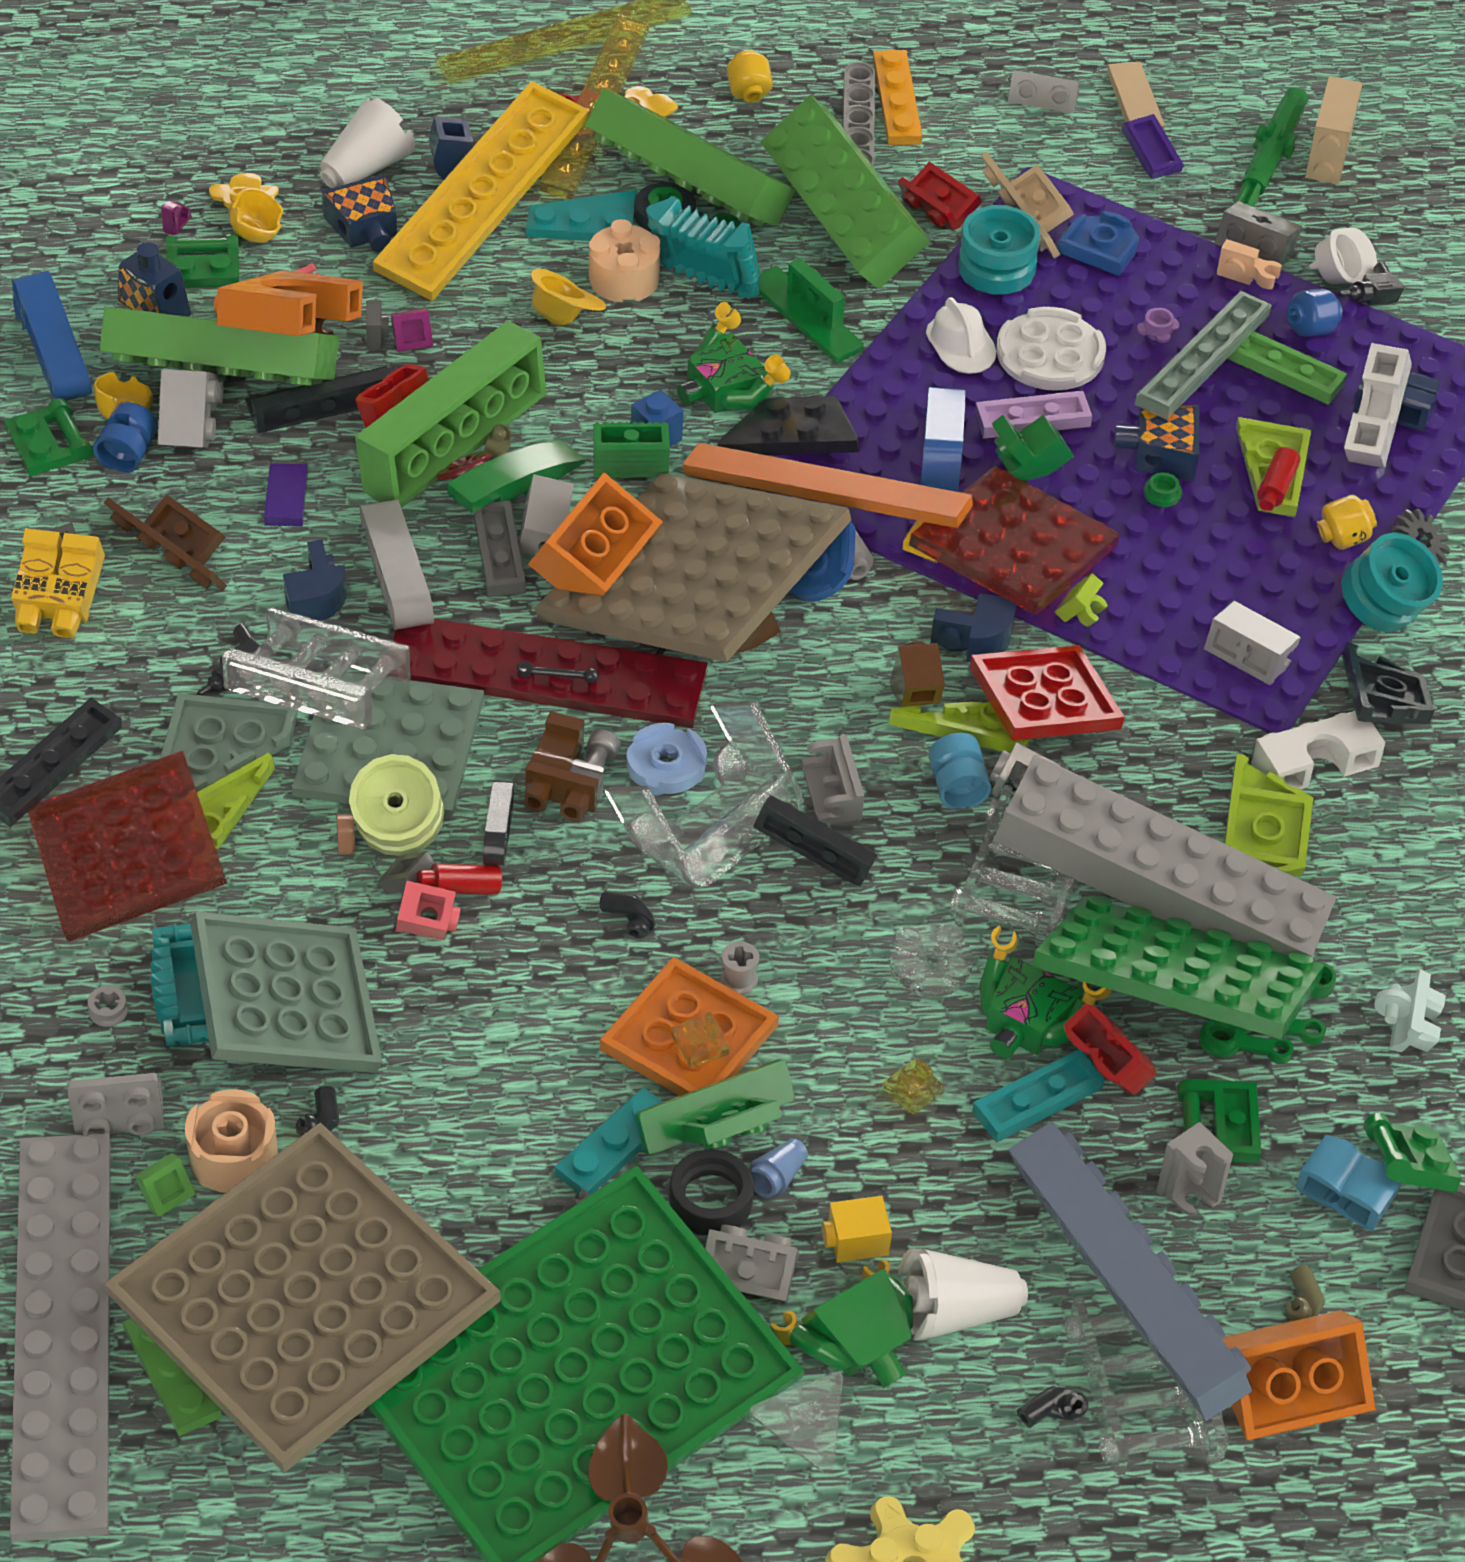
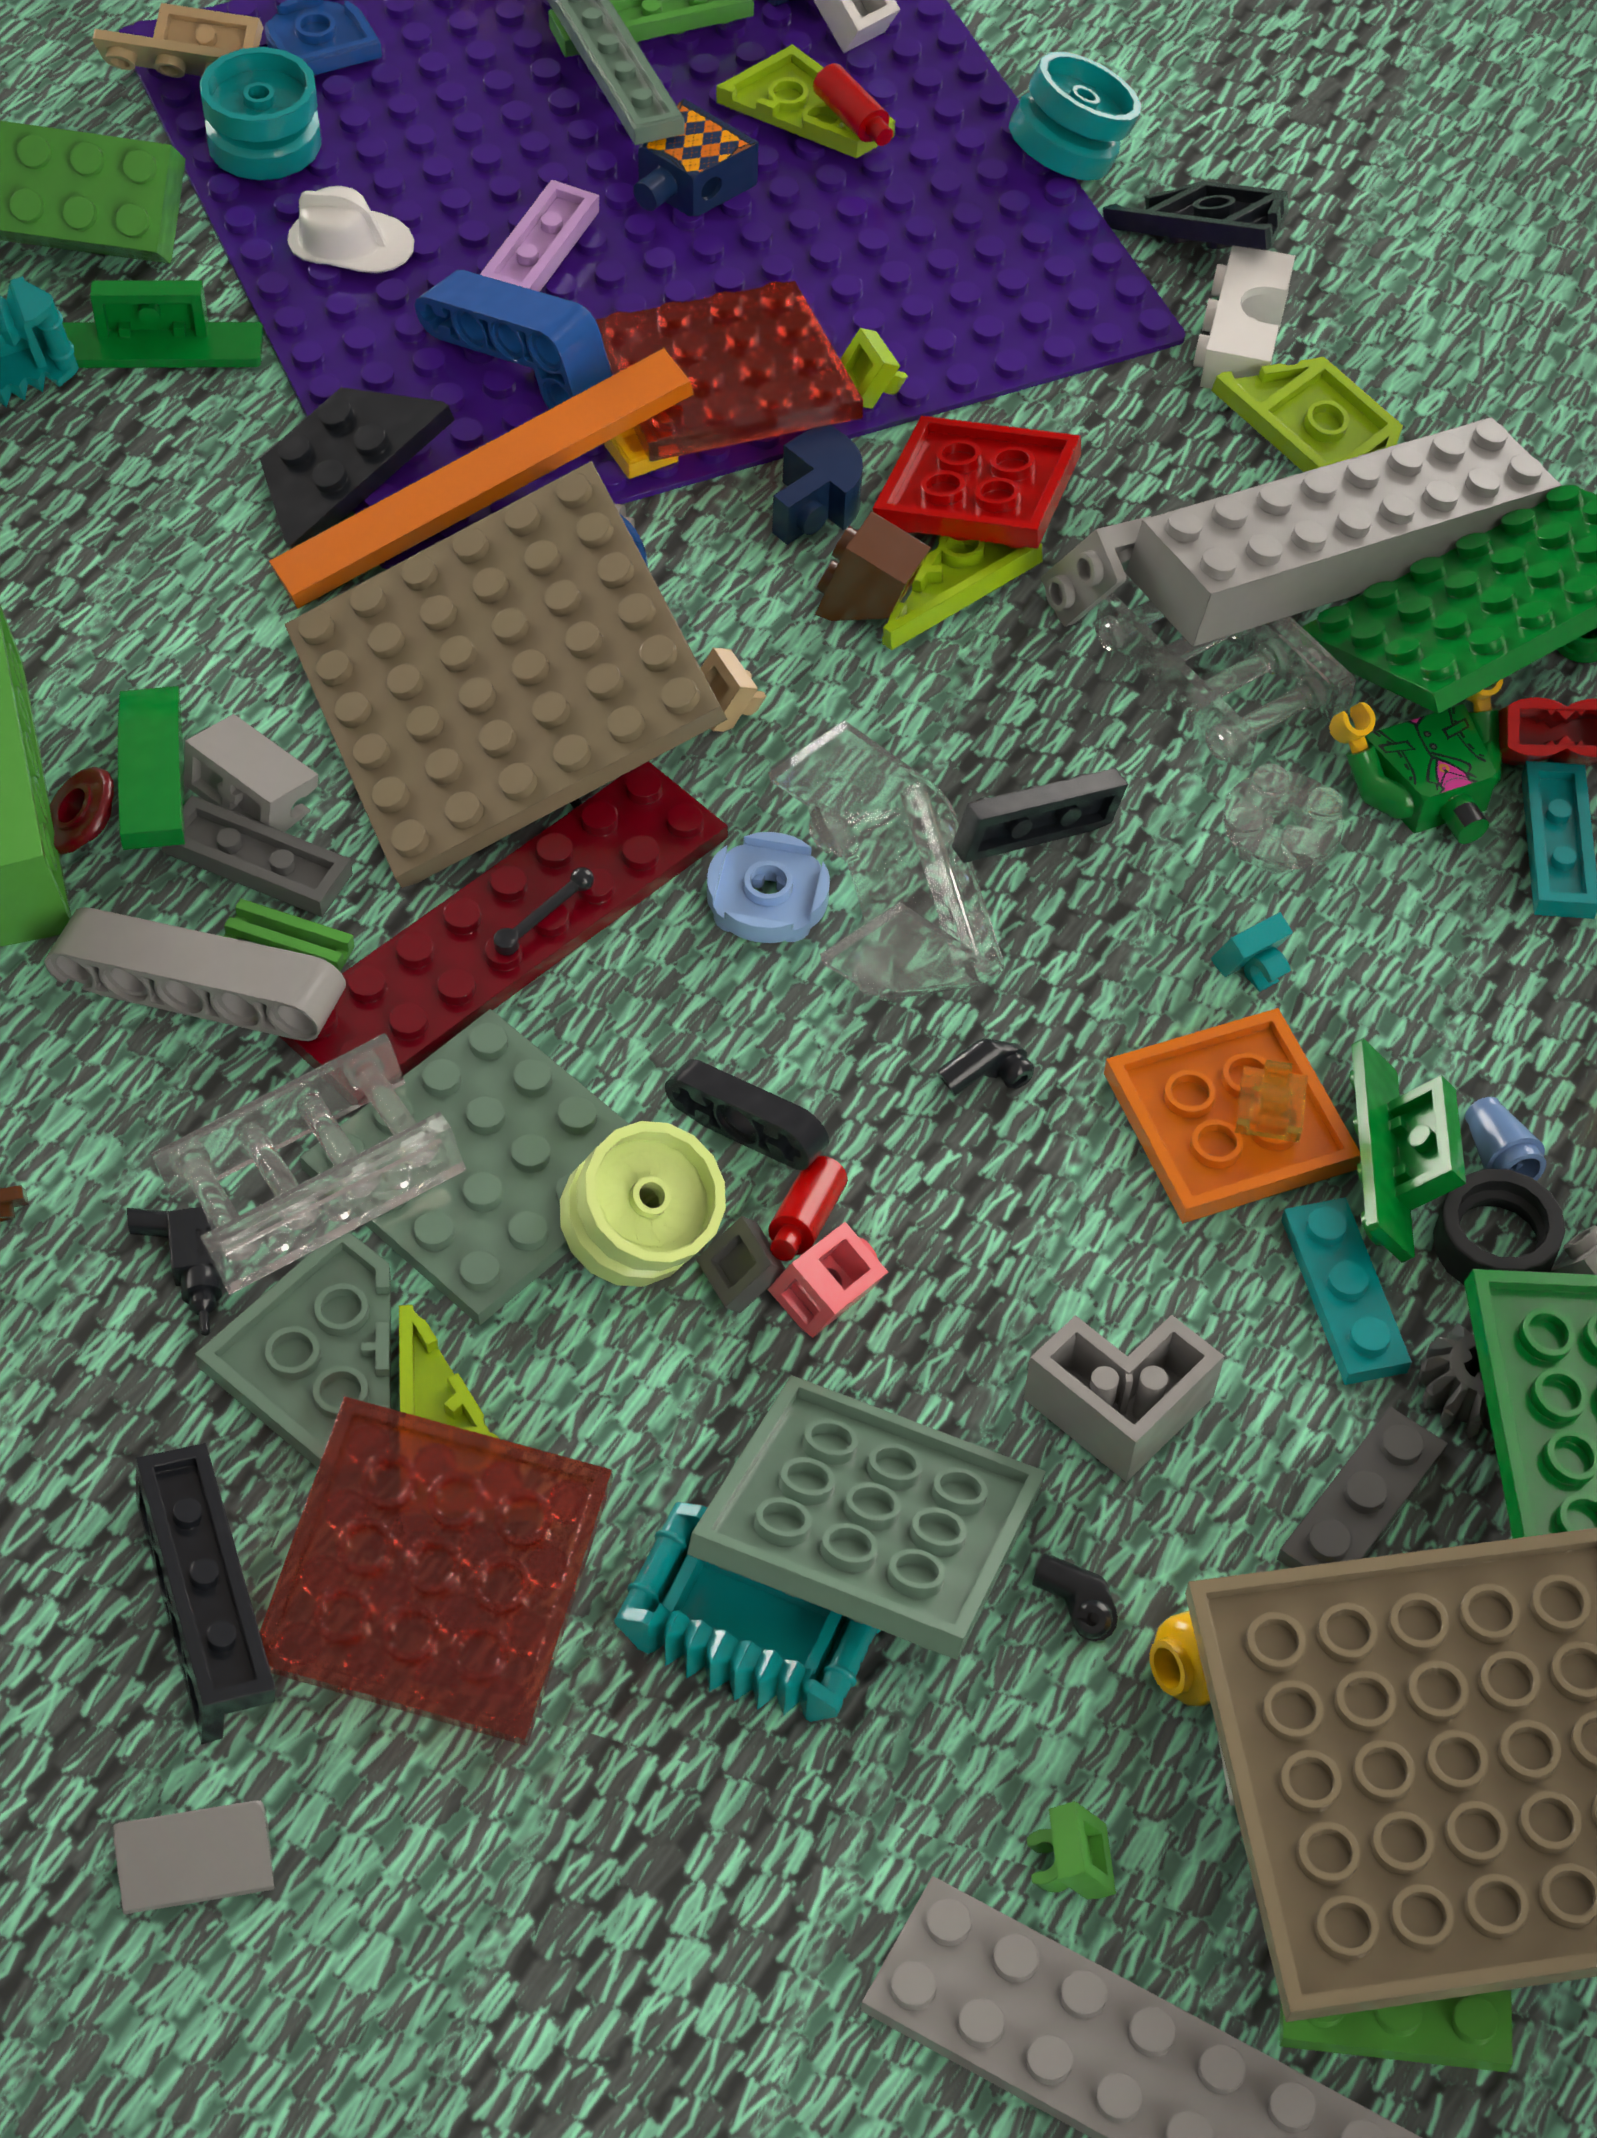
camera: 55 degrees left, 5 degrees up
(105, 1016) = (712, 1765): light grey bush -> none
(117, 1104) = (893, 1837): light grey bracket -> none
(229, 1138) = (1070, 1685): light nougat brick -> none
(316, 591) = (147, 1084): dark blue brick -> none
(345, 834) = (616, 1297): nougat tile -> none
(448, 1072) = (1118, 1403): none -> light grey brick
(451, 571) = (289, 933): none -> bright green tile
(481, 1212) = (1365, 1494): none -> dark grey plate
(498, 441) = (68, 758): olive arm -> none
(558, 773) = (709, 1013): reddish brown hips -> none
(596, 540) = (371, 740): orange slope -> none
(631, 449) = (233, 625): green brick -> none
(659, 408) = (203, 576): blue brick -> none
(727, 372) = (187, 466): green torso -> none
(740, 963) = (1162, 996): light grey bush -> none
(786, 668) = (731, 687): none -> tan tile
(812, 988) = (1256, 953): none -> teal tile
(833, 781) = (948, 745): light grey hinge -> none
(914, 1086) = (1462, 945): clear yellow tile -> none
(939, 195) = (97, 110): red bracket -> none
(959, 770) = (1030, 624): dark azure wheel -> none
(1032, 451) = (601, 268): green brick -> none
(1051, 349) = (442, 173): white tile -> none
(1158, 325) = (502, 67): medium lavender plate -> none
(1163, 490) = (759, 210): green plate -> none
(1251, 642) = (1057, 273): light grey hinge -> none
(1347, 522) = (951, 98): yellow head -> none
(1415, 524) = (1004, 65): dark grey gear -> none

